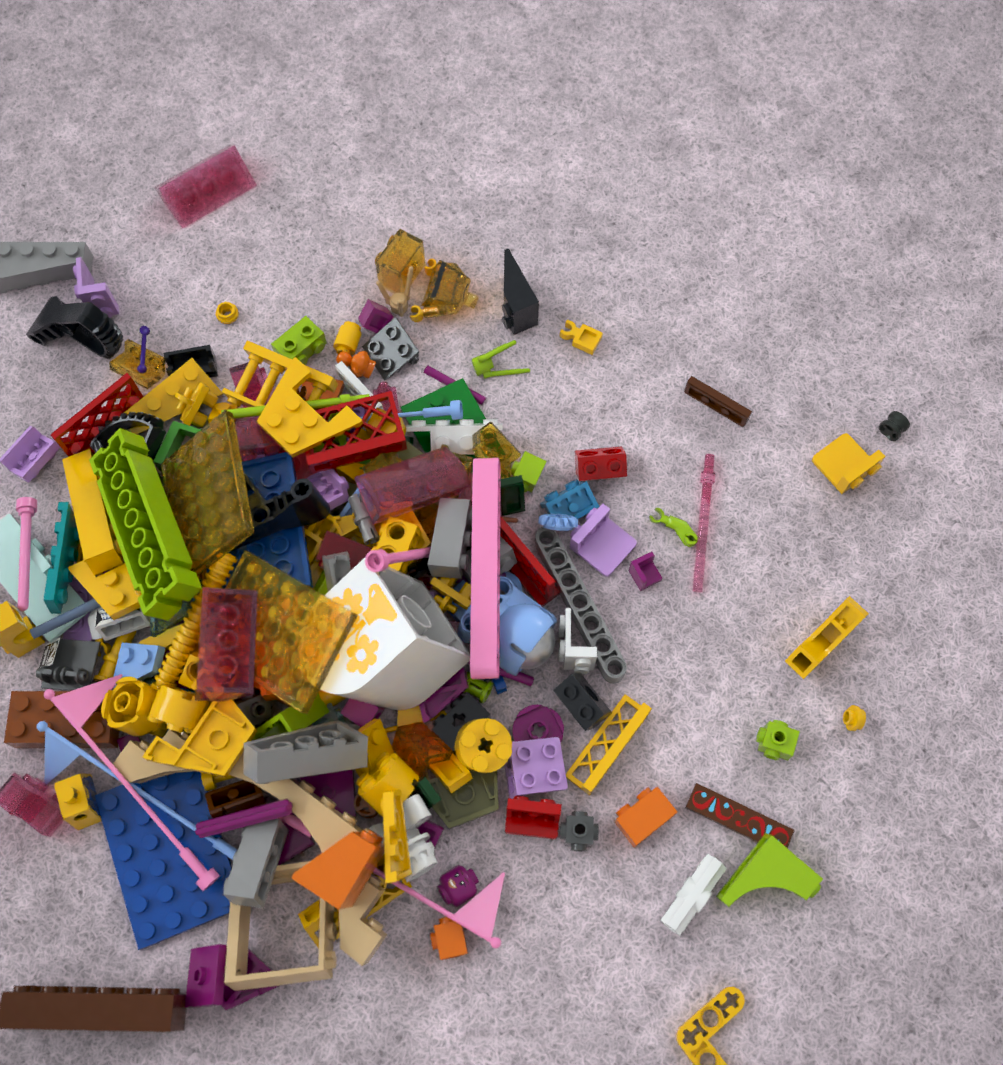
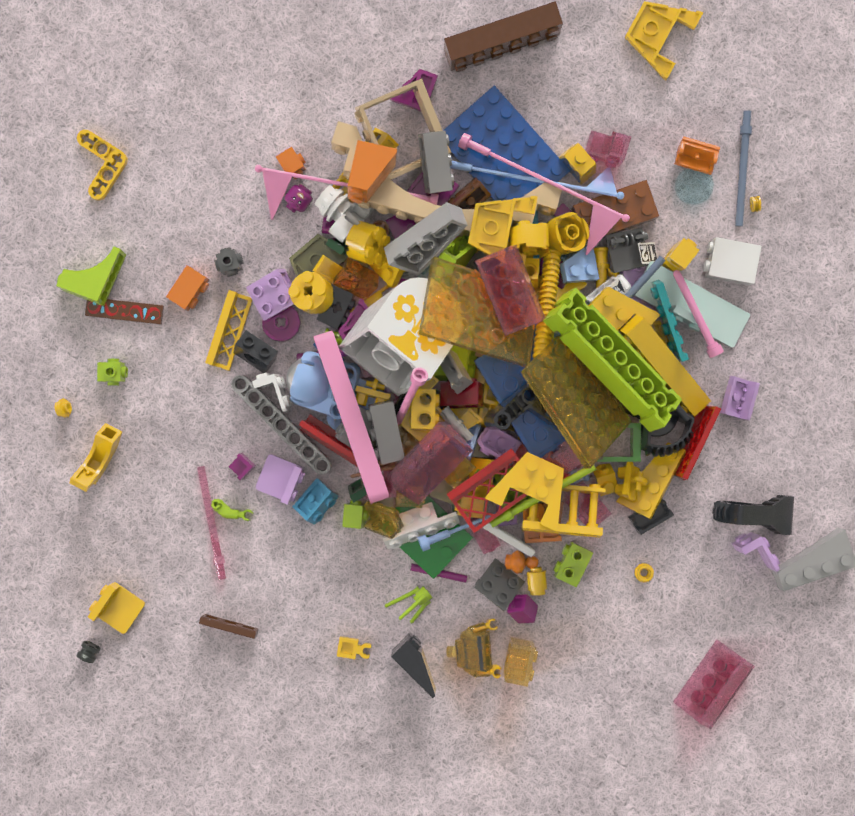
camera: 160 degrees right, 20 degrees up
(130, 360) = (691, 501): clear yellow bracket -> none
(144, 330) = (696, 527): dark purple hinge -> none
(206, 976) = (439, 82): magenta plate -> none
(244, 818) = (454, 185): magenta axle -> none
(395, 837) = (343, 203): yellow wing -> none
(398, 301) = (509, 629): tan plant -> none
(532, 817) = (263, 258): red bracket -> none
(558, 522) = (315, 478): light blue gear -> none
(601, 463) = (301, 540): red brick -> none
(693, 894) = (140, 248): white piece -> none

